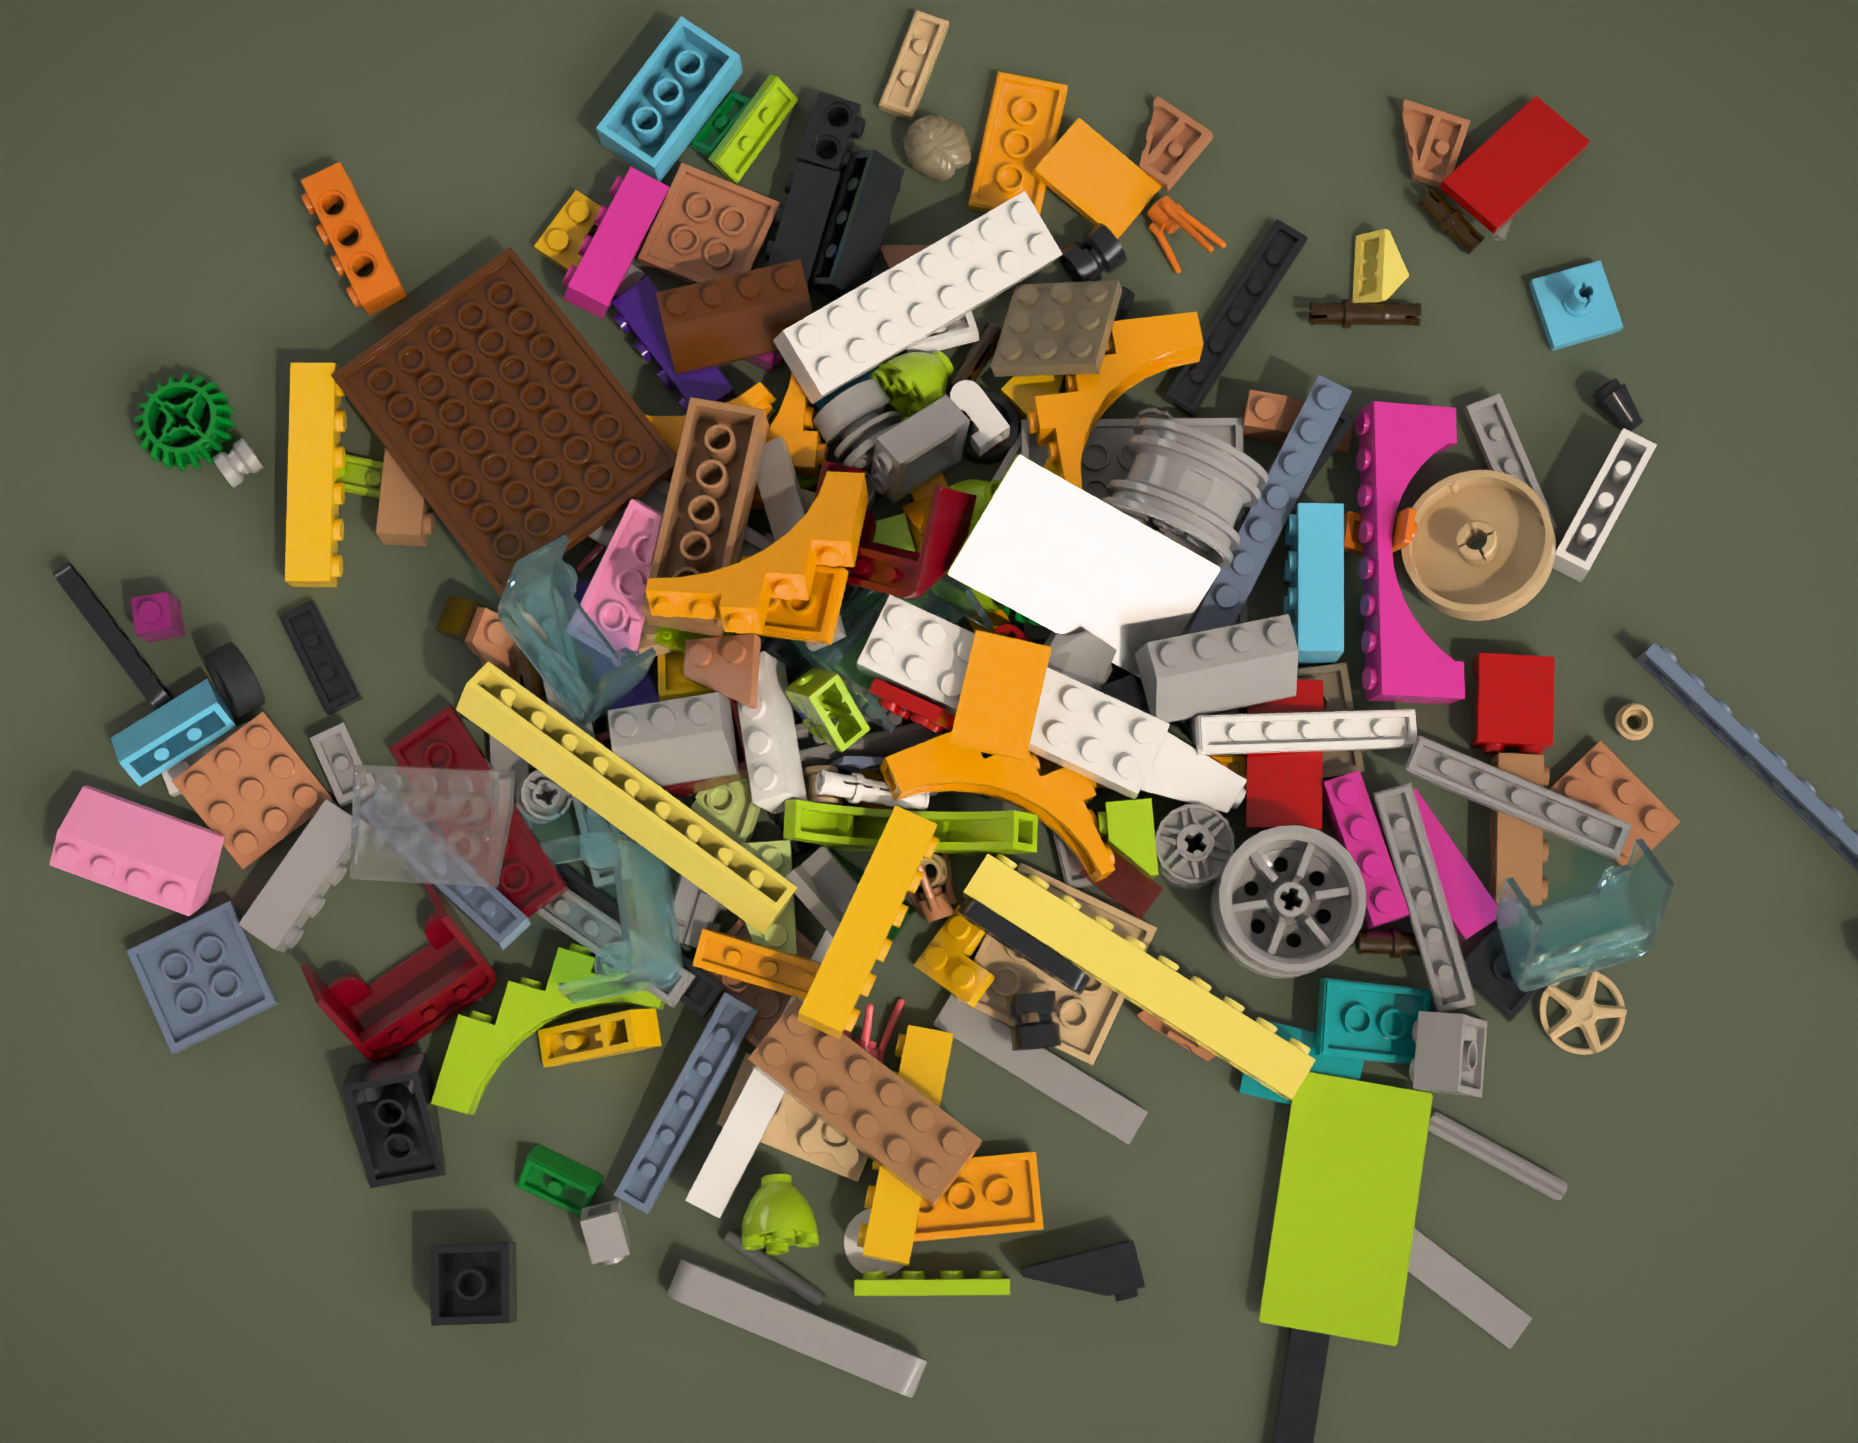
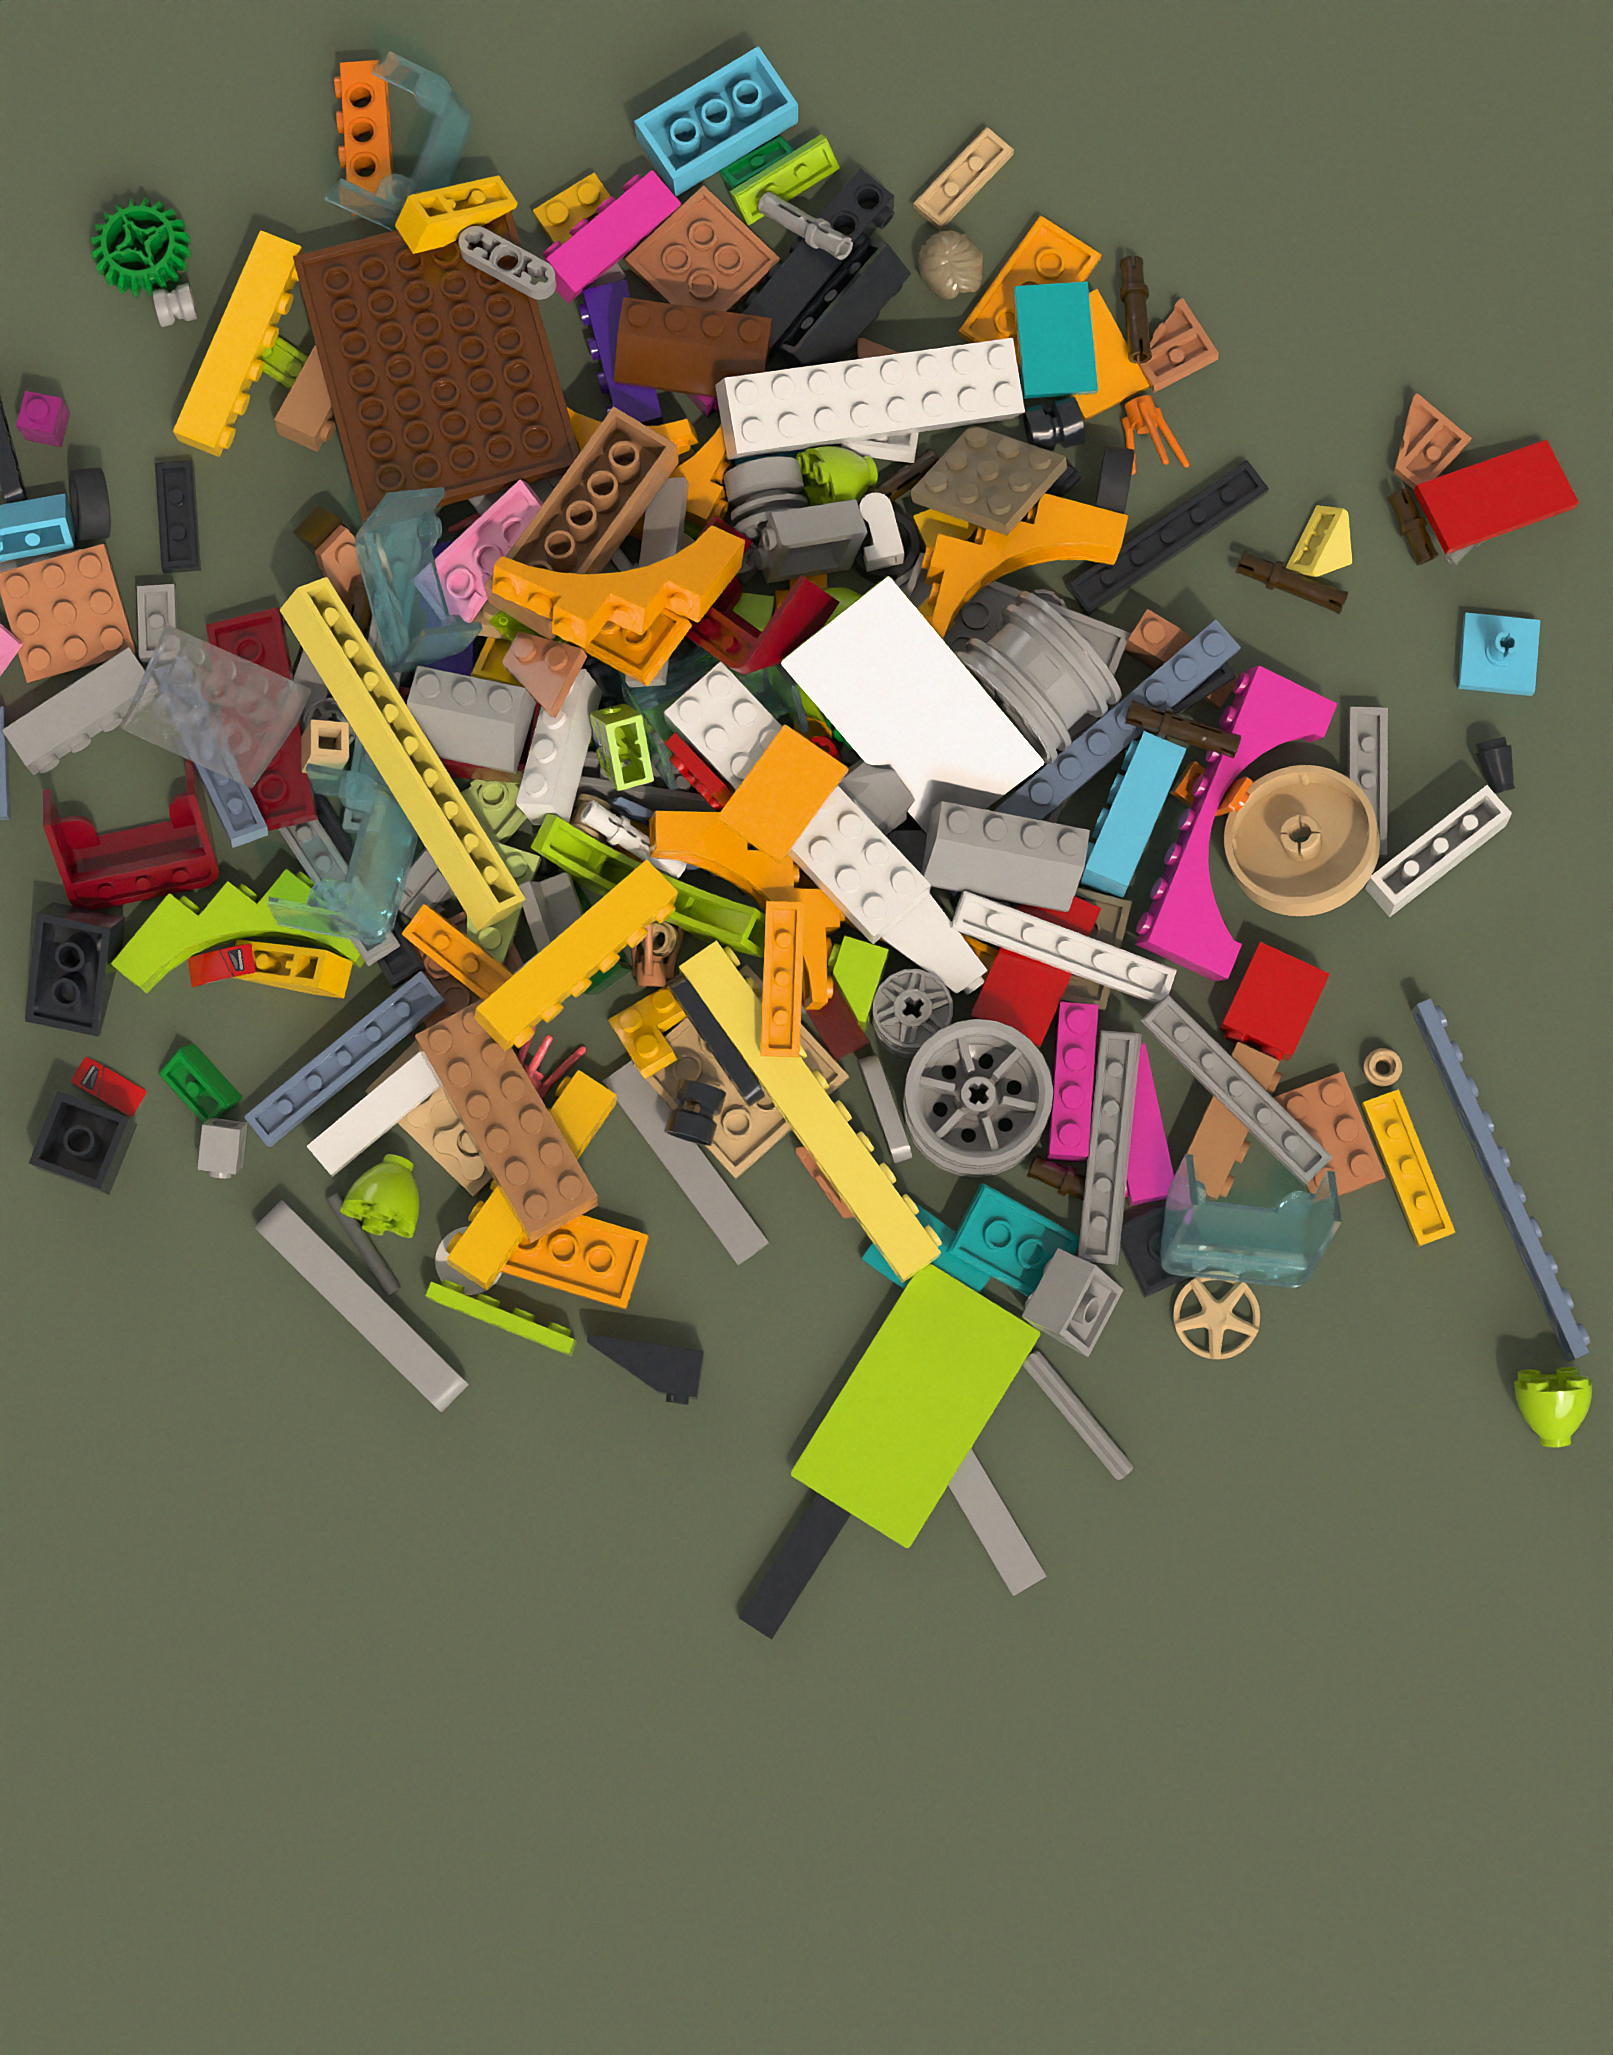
camera: 20 degrees right, 0 degrees up
(425, 277) = (438, 155): none -> clear light blue windscreen
(462, 277) = (442, 214): none -> yellow slope
(474, 1217) = (108, 1086): none -> red sticker
(533, 1060) = (221, 964): none -> red sticker
(550, 818) = (325, 744): none -> tan brick
(561, 296) = (515, 277): none -> light grey beam
(804, 164) = (815, 231): none -> light grey pin
(1061, 178) = (1055, 340): none -> teal tile
(1067, 866) = (782, 979): none -> light orange plate
(1114, 110) = (1134, 296): none -> dark brown pin
(1169, 283) = (1115, 478): none -> black tyre
(1202, 944) = (885, 1108): none -> light grey beam
(1327, 487) = (1183, 729): none -> dark brown pin
(1696, 805) = (1408, 1168): none -> yellow plate

